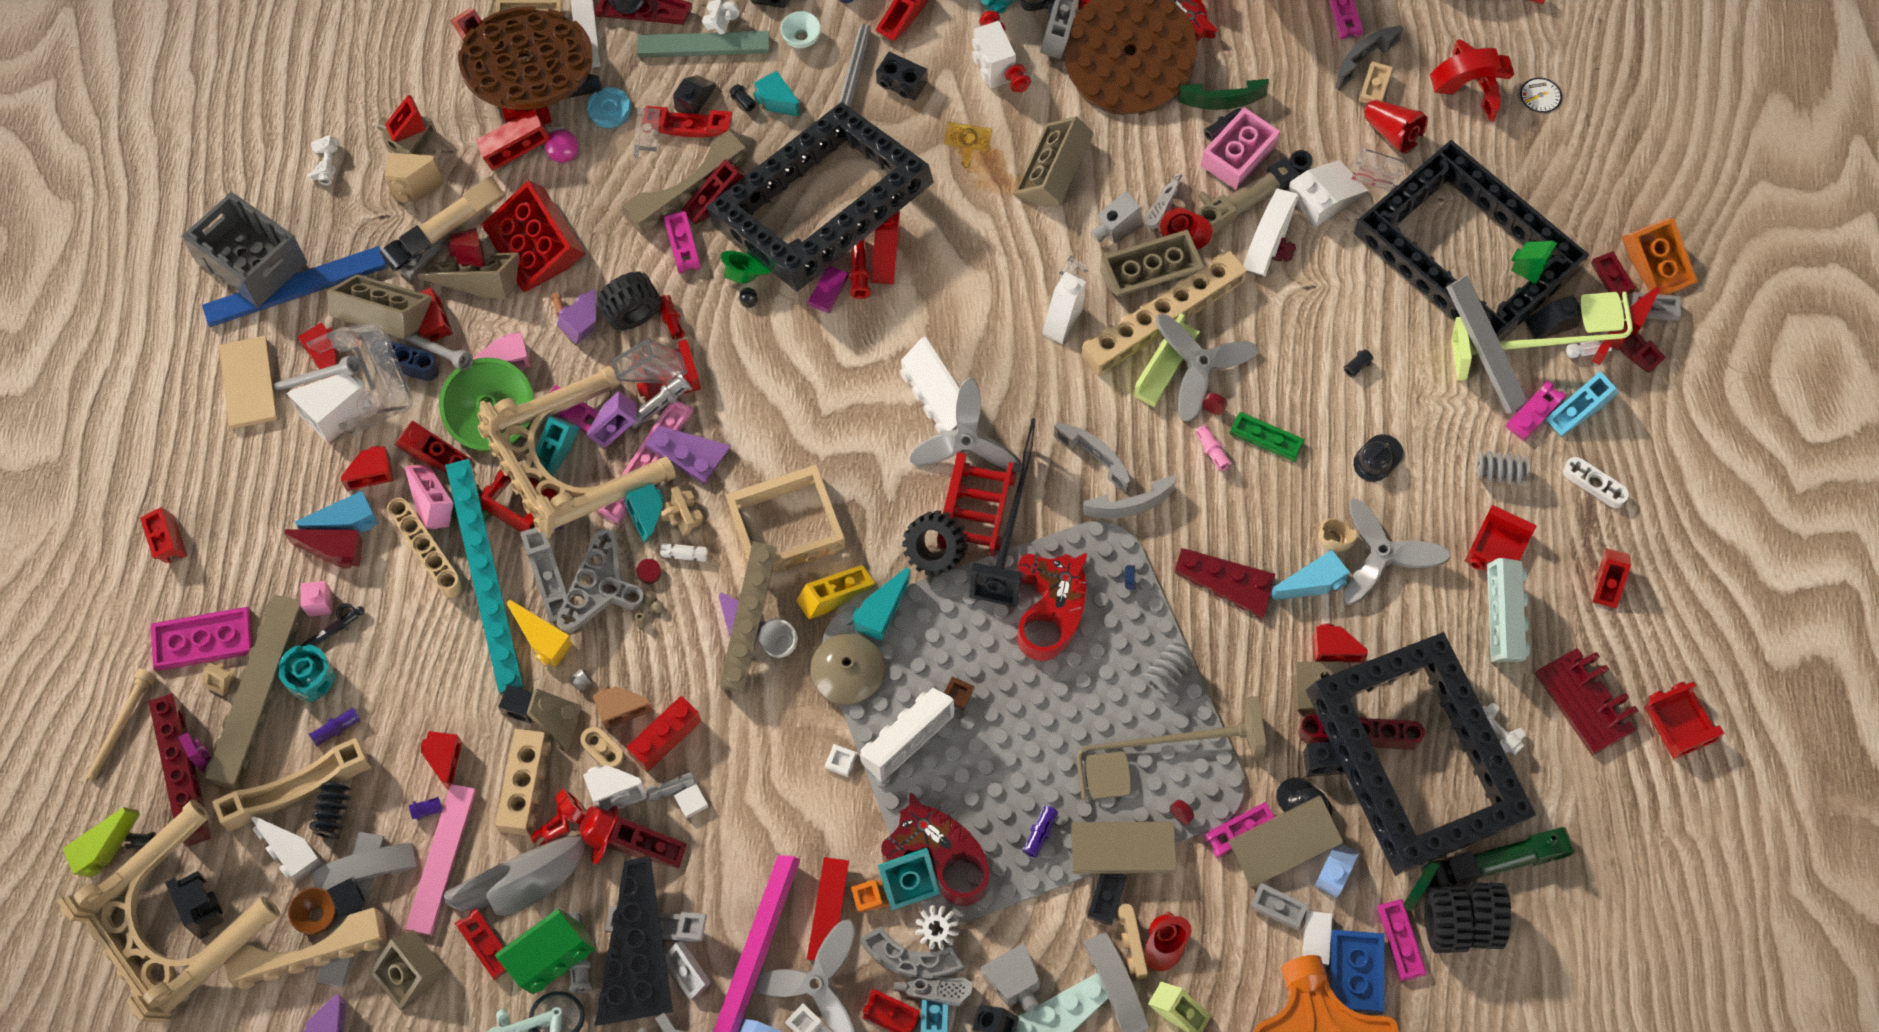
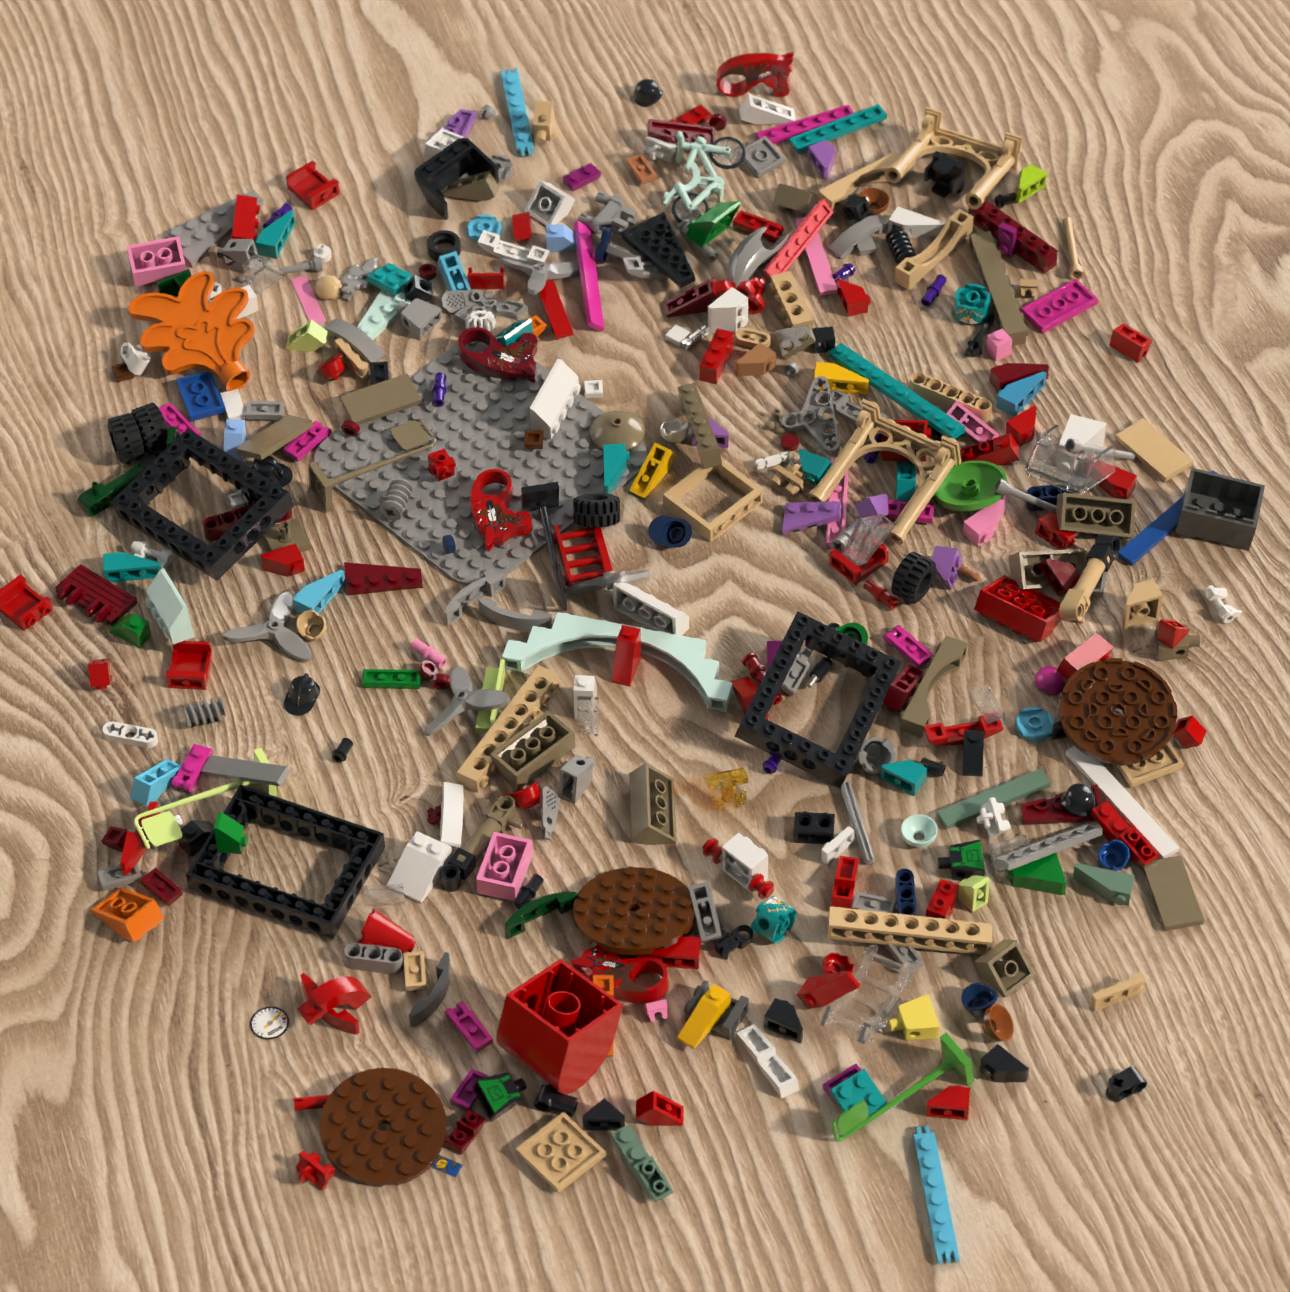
camera: 155 degrees right, 15 degrees down
(453, 877) = (799, 239): none -> coral tile
(710, 992) = (600, 251): none -> dark blue piece
(791, 122) = (875, 753): none -> light grey helmet
(859, 485) = (670, 531): none -> dark blue piece
(898, 45) = (834, 848): none -> white plate
(993, 339) = (626, 655): none -> red slope
(1020, 397) = (578, 632): none -> light aqua arch
(1092, 694) = (441, 465): none -> red brick
(1222, 426) = (427, 669): none -> dark red tile
(1413, 101) = (361, 957): none -> light grey beam
(1538, 720) = (128, 567): none -> teal slope
(1557, 624) = (132, 629): none -> green slope

